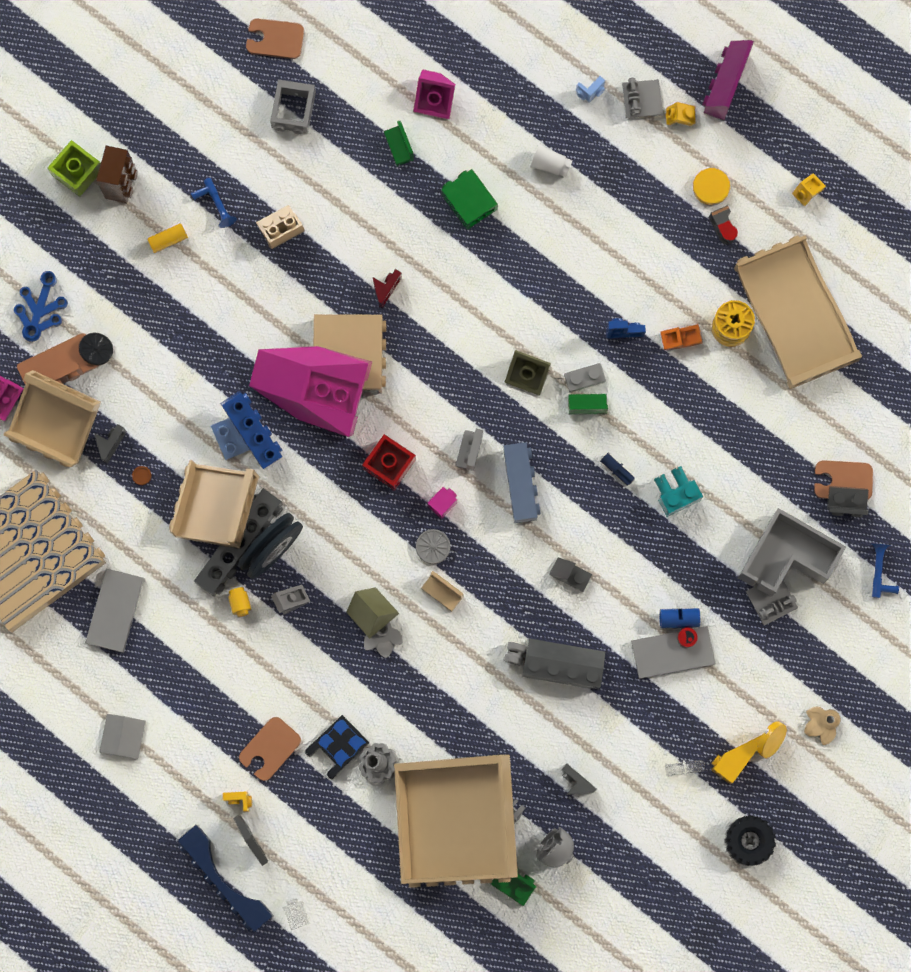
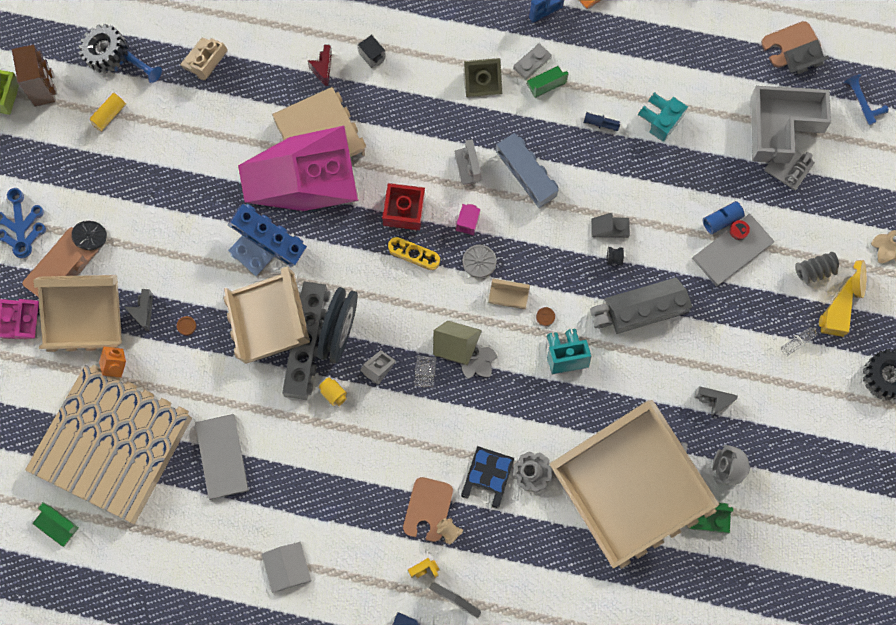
camera: 30 degrees left, 5 degrees down
(60, 478) = (112, 361): none -> orange brick
(183, 170) = (96, 41): none -> bush
(276, 777) = (448, 530): none -> tan brick
(330, 624) = (425, 371): none -> clear bracket
(364, 502) = (417, 261): none -> yellow beam
(437, 296) = (371, 51): none -> black brick
(465, 676) = (568, 356): none -> teal brick
(466, 628) = (545, 316): none -> dark orange piece
(558, 604) = (615, 256): none -> black wheel
(740, 709) = (817, 267): none -> dark grey piece

